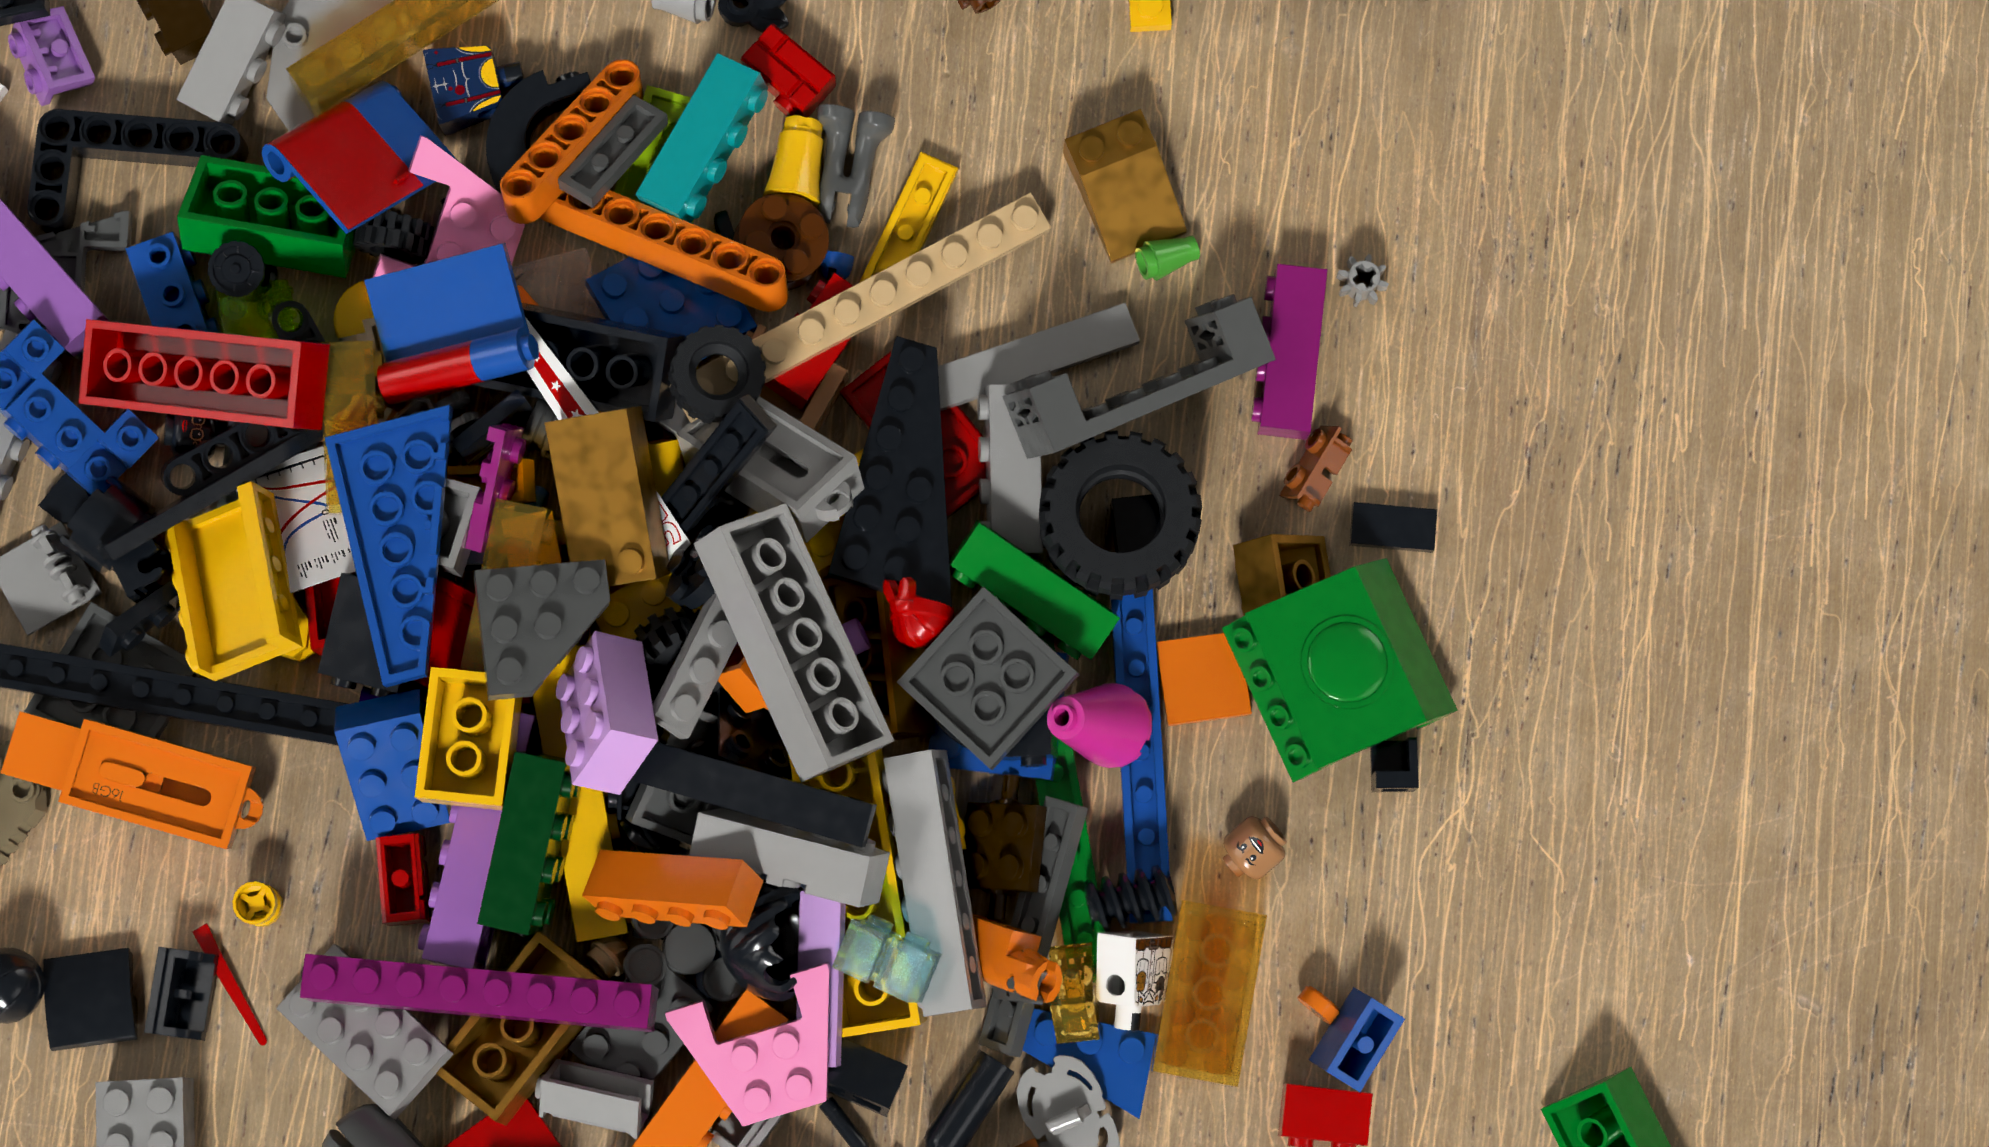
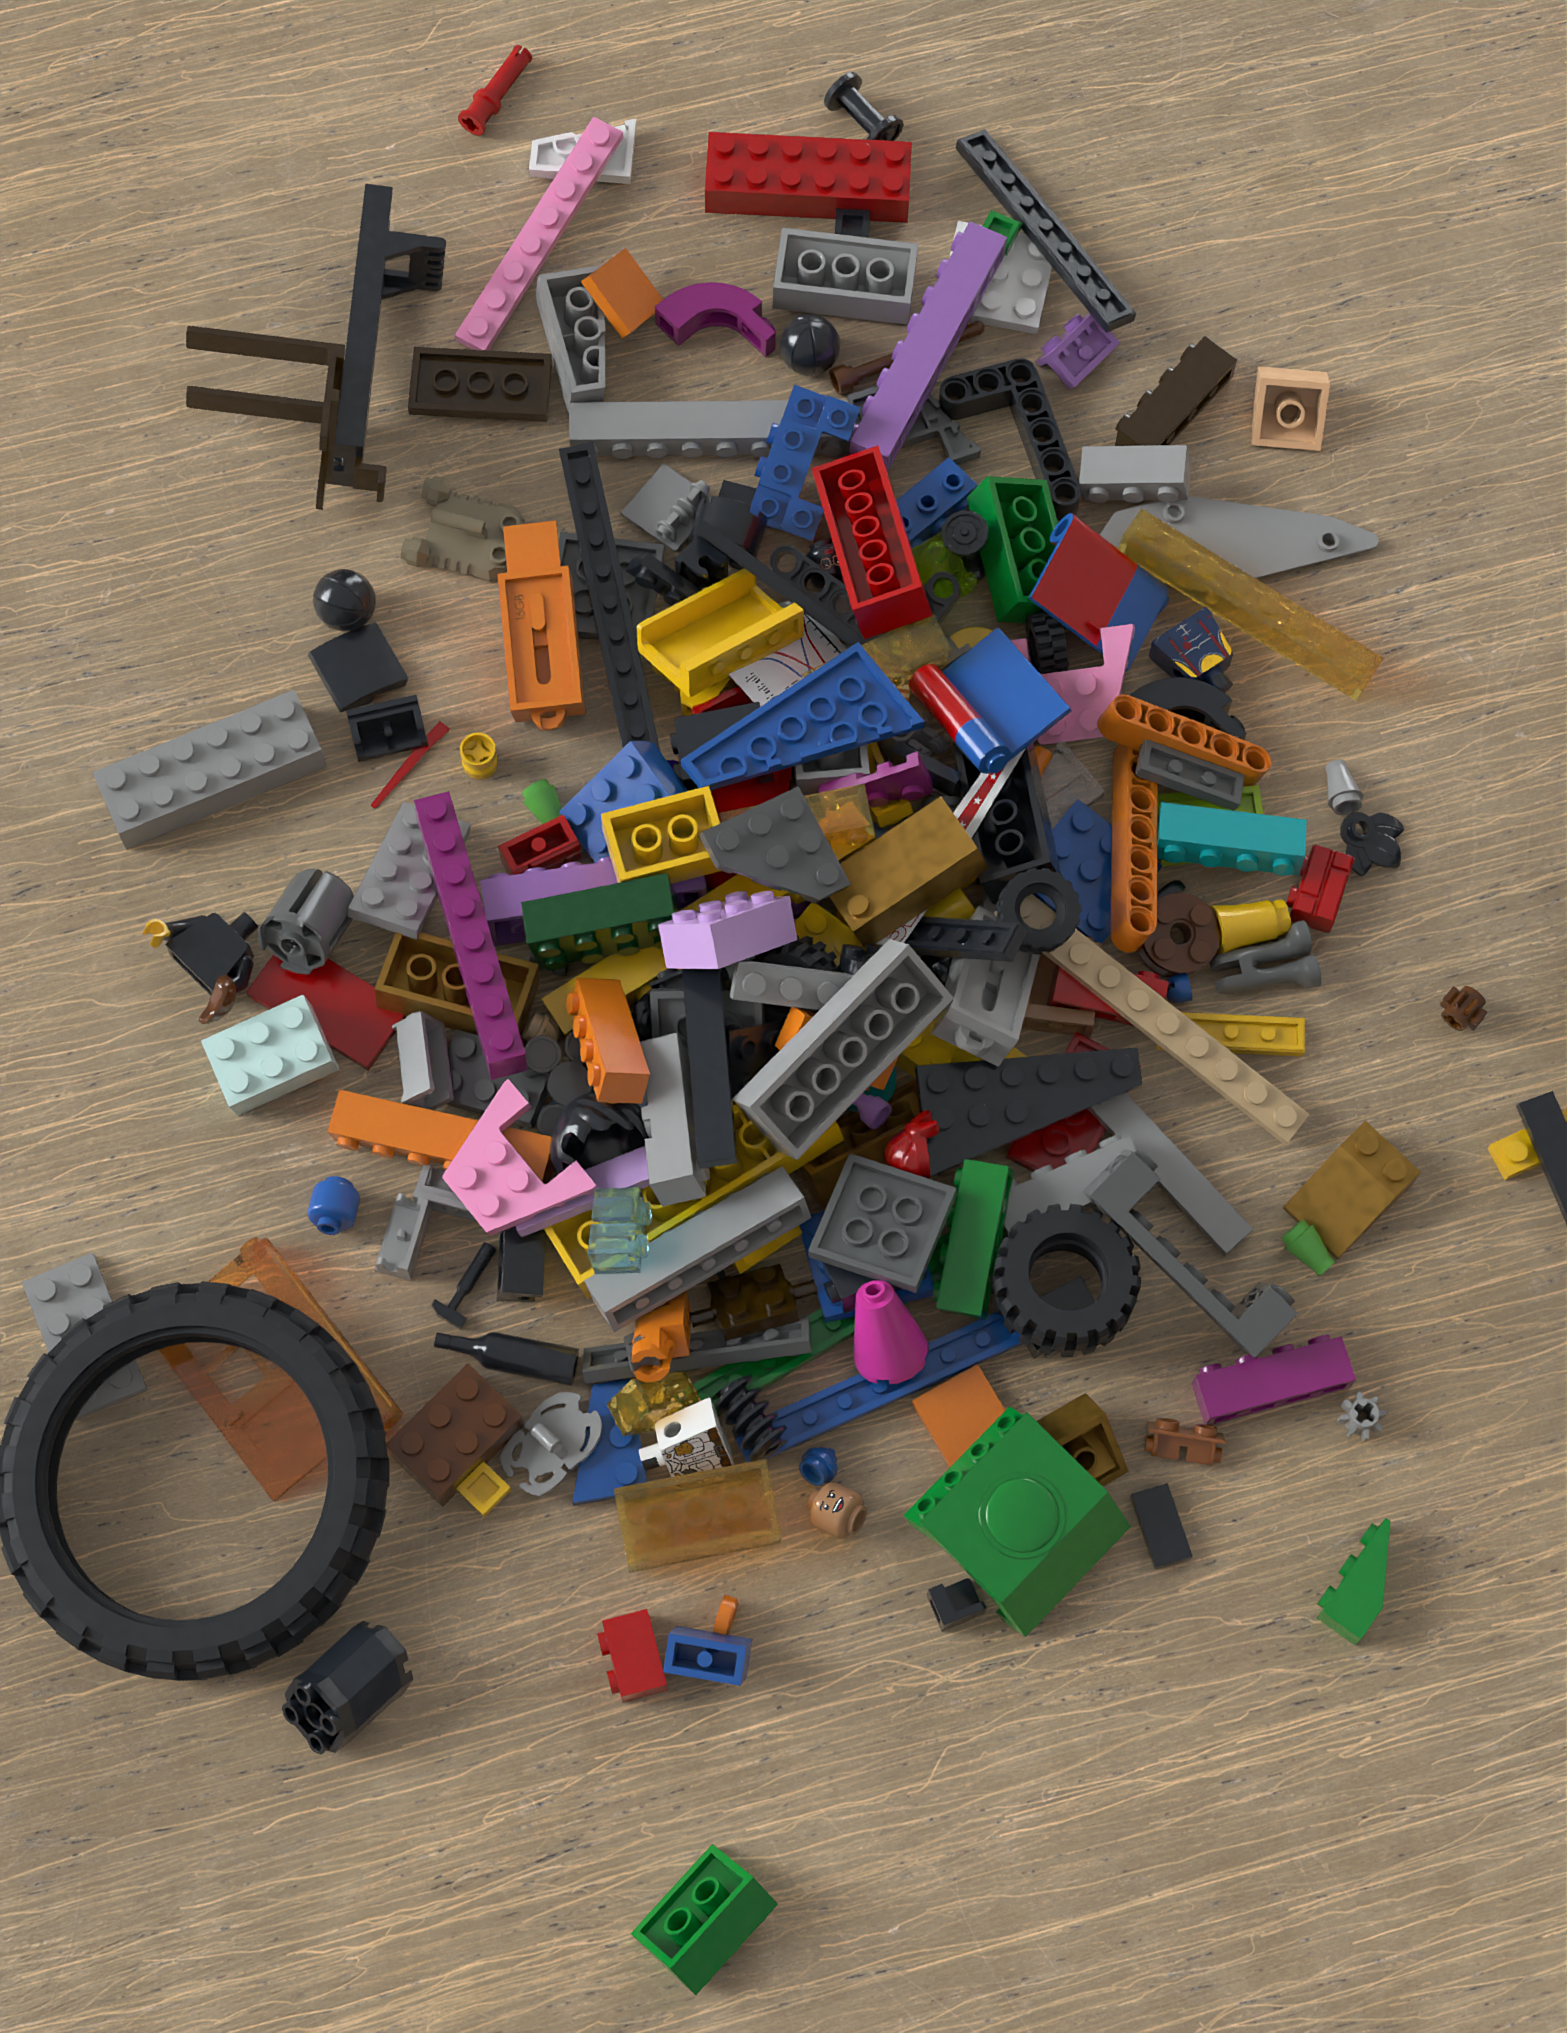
camera: 70 degrees right, 10 degrees down
(346, 853) = (542, 801): none -> bright green cone
(1199, 847) = (818, 1465): none -> blue plate
(1536, 360) = (1360, 1594): none -> green slope

